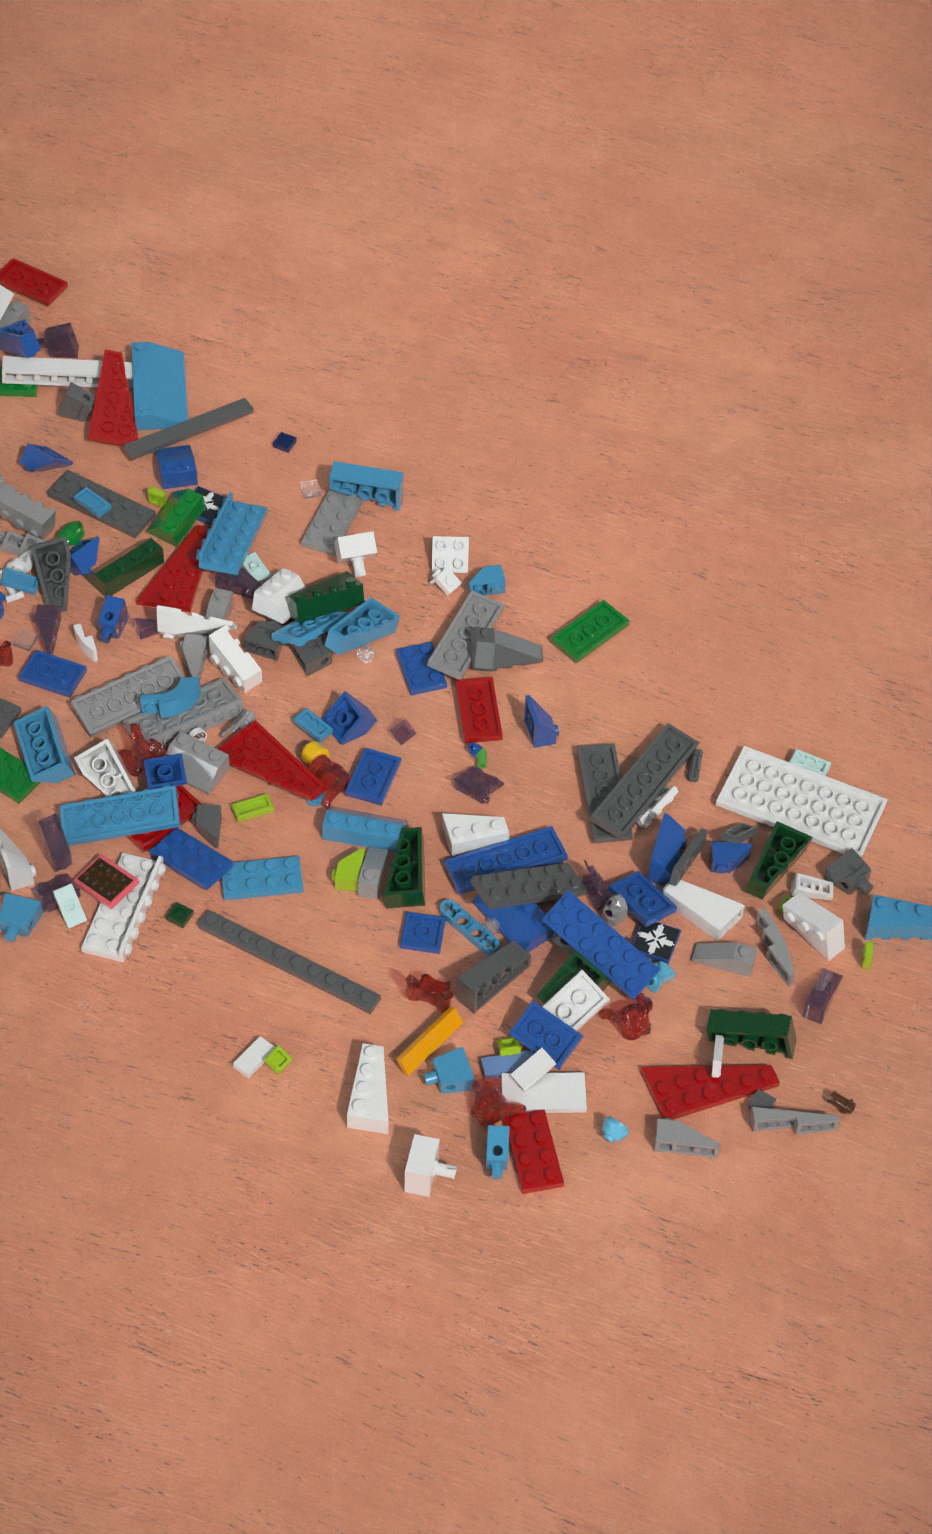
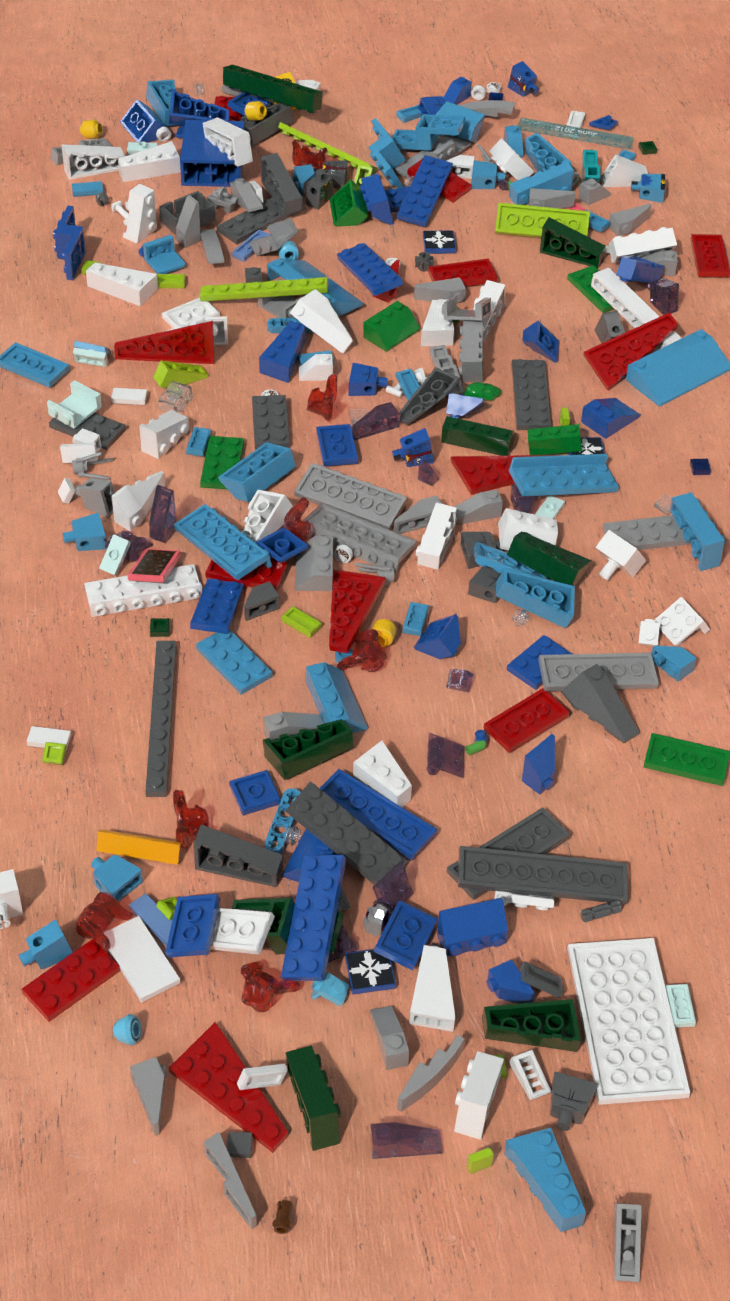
camera: 60 degrees right, 5 degrees down
(85, 643) = (381, 447): white slope -> none
(92, 502) = (521, 385): dark azure tile -> none
(174, 701) = (364, 520): dark azure arch -> none
(175, 624) = (443, 487): white wedge -> none
(188, 429) = (654, 405): dark grey tile -> none
(348, 871) = (280, 704): lime slope -> none
(369, 1097) = (58, 827): white wedge -> none
(373, 776) = (393, 682): blue plate -> none
(533, 1069) = (151, 933): white tile -> none
(688, 857) = (476, 947): dark grey tile -> none

